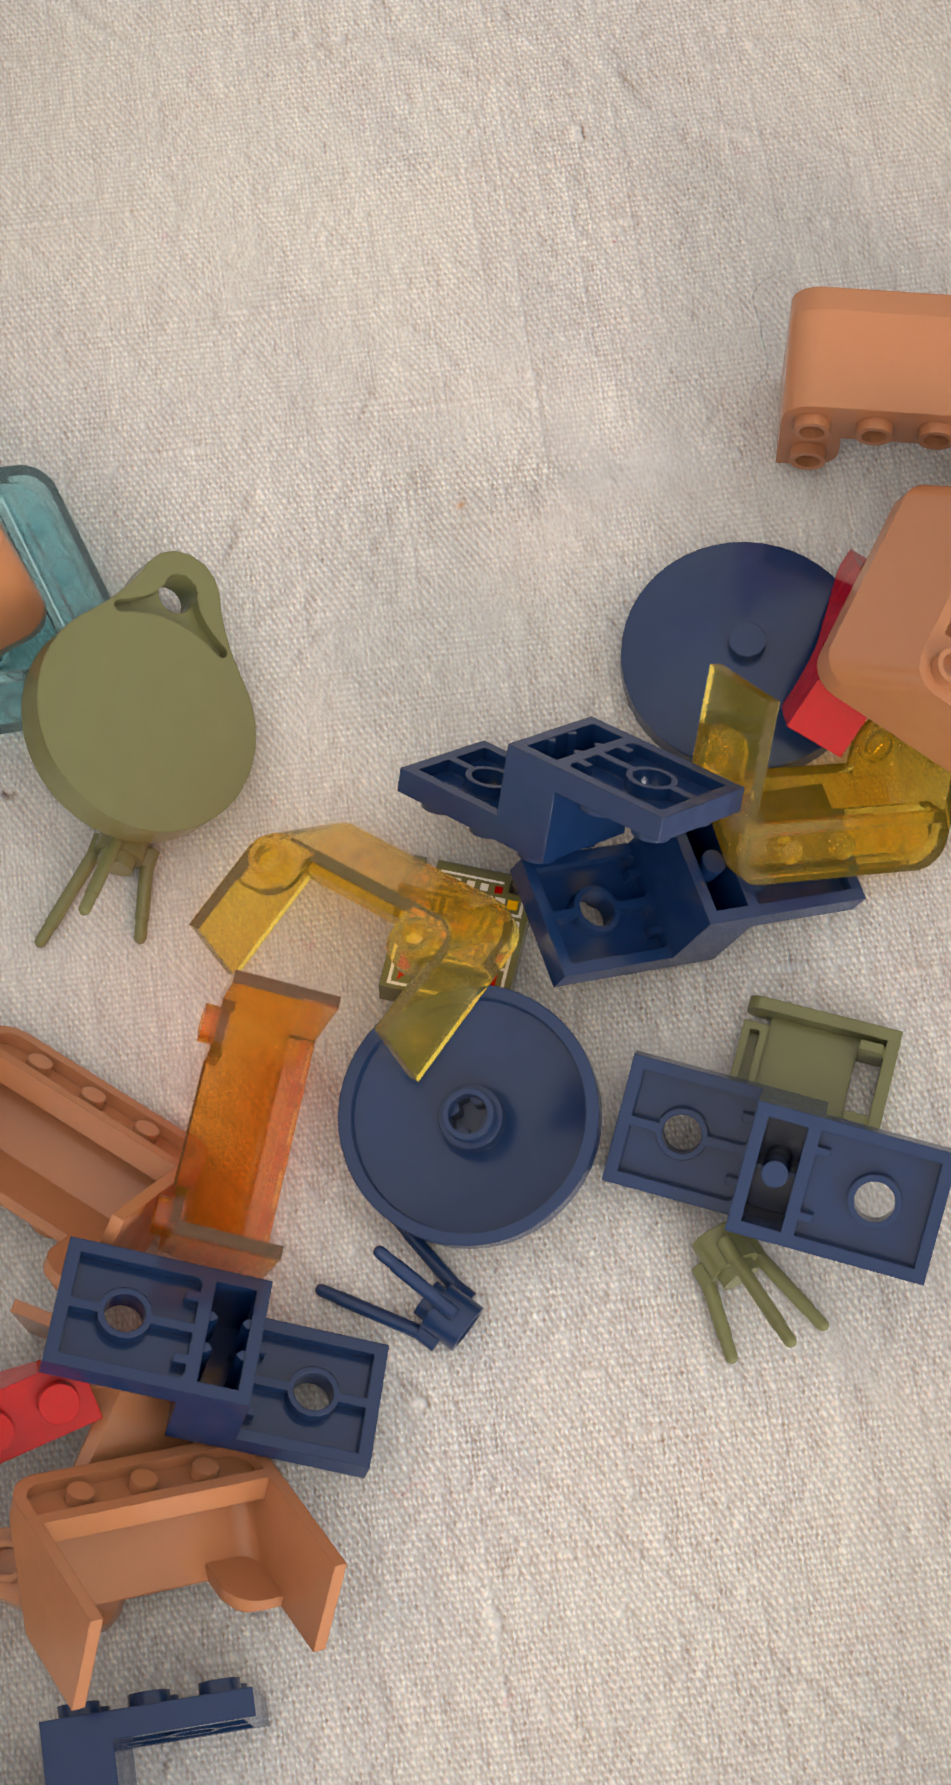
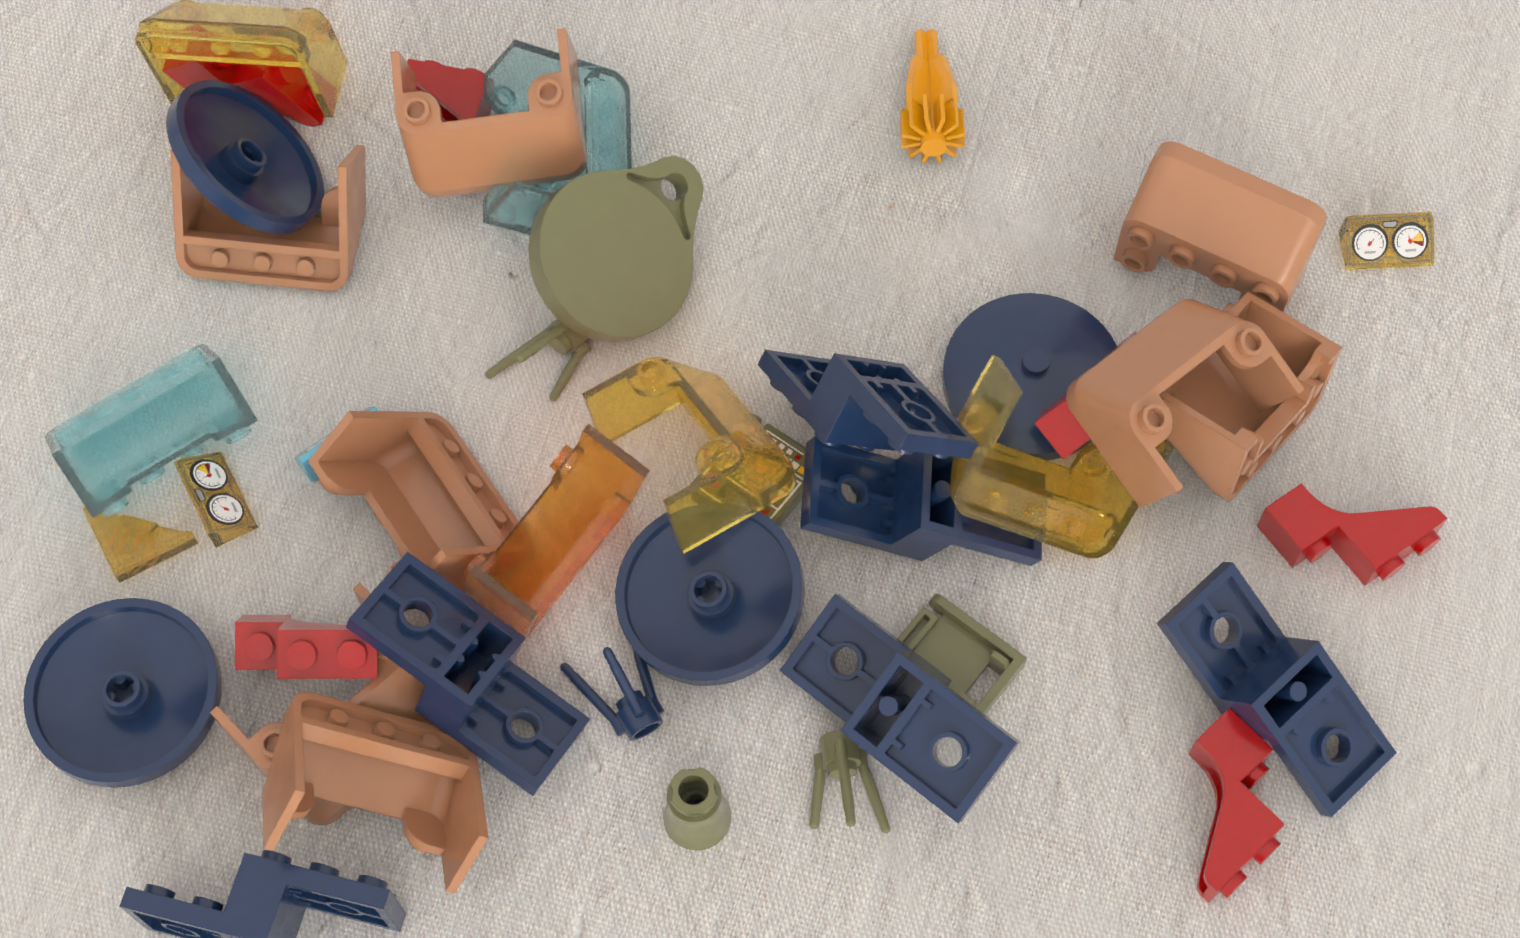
camera: 20 degrees right, 5 degrees down
(458, 348) = (931, 112): none -> light orange piece
(573, 1430) = (699, 824): none -> olive plant

